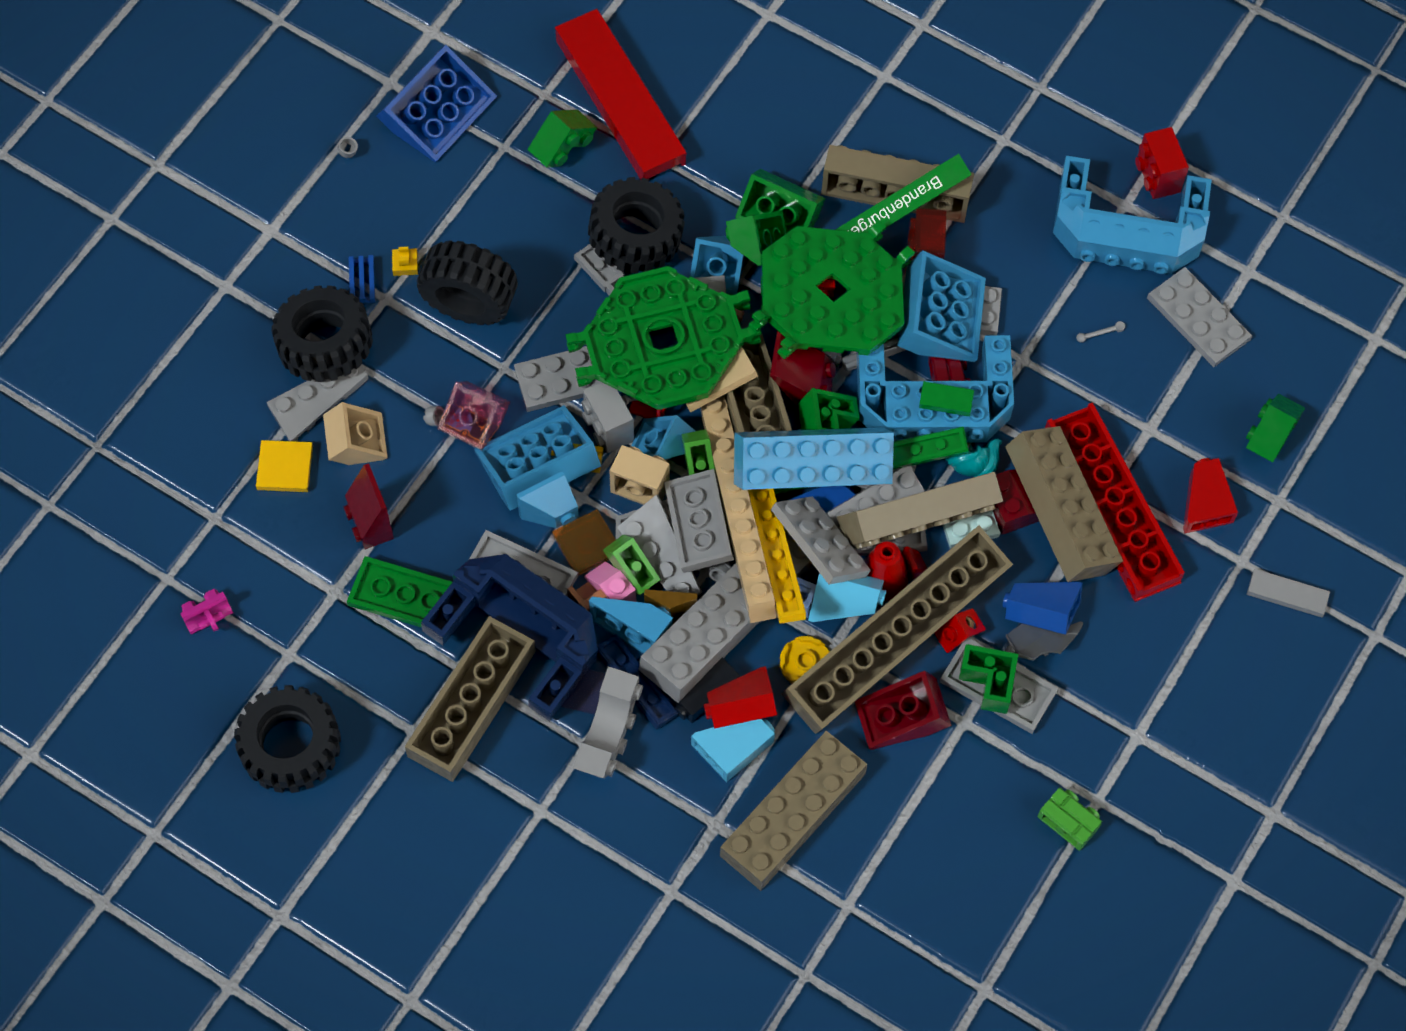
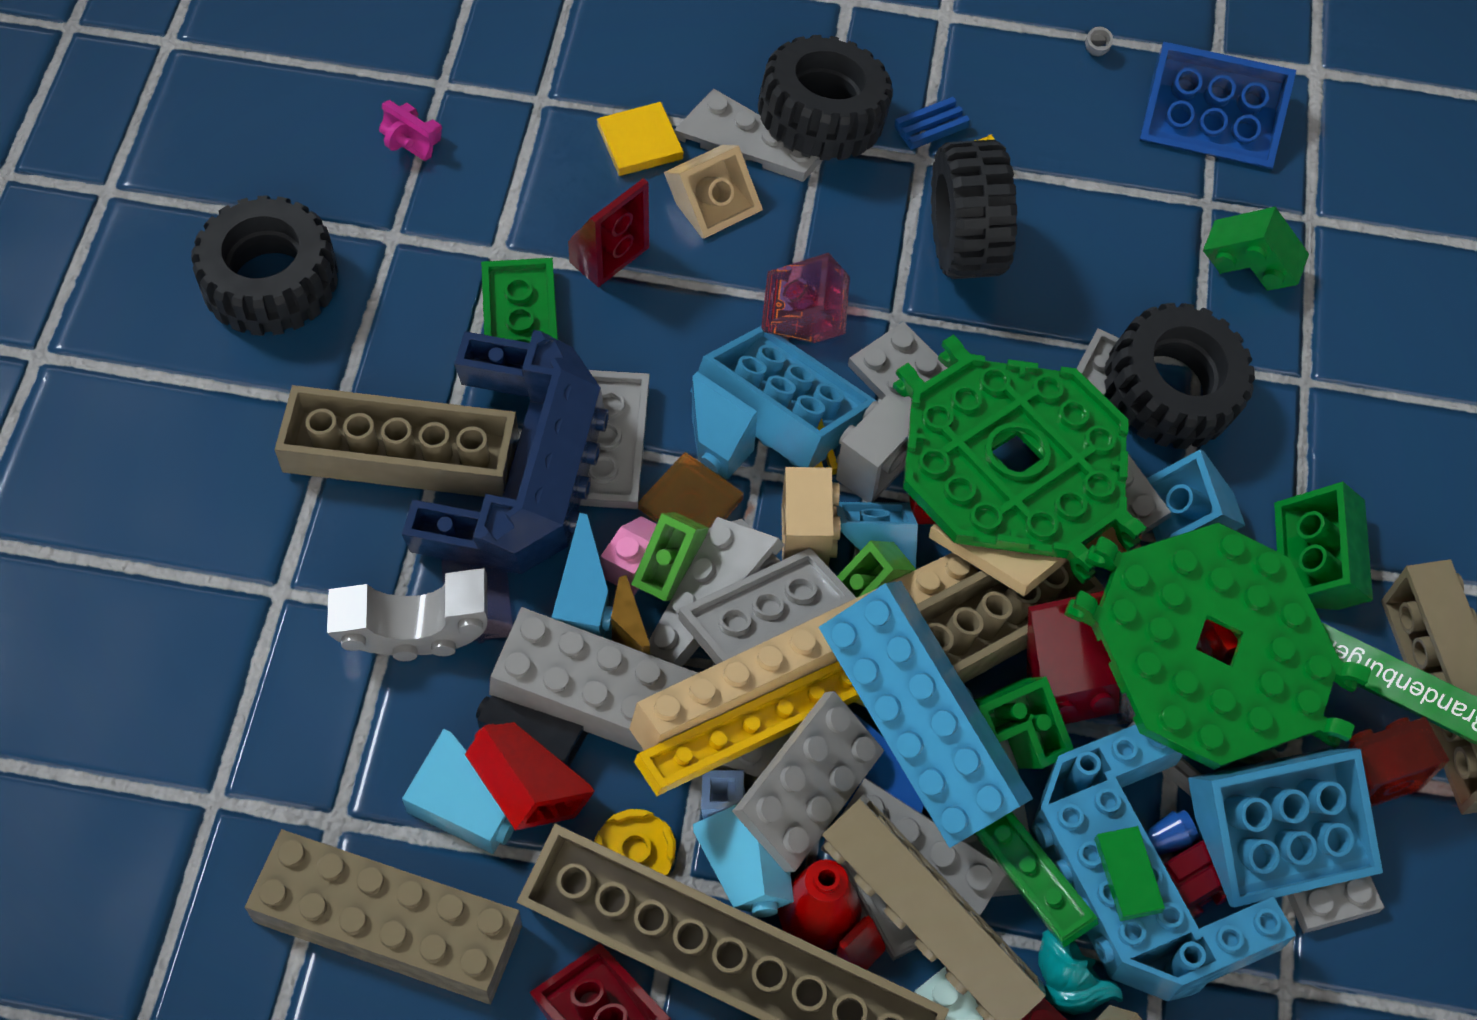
camera: 65 degrees right, 5 degrees down
(433, 415) = (790, 256): light grey hinge -> none
(583, 594) = (604, 523): nougat panel -> none
(620, 95) = (1362, 296): red tile -> none
(652, 700) = (537, 595): dark blue tile -> none
(755, 233) = (1249, 508): green slope -> none
(917, 369) = (1173, 833): none -> blue cone

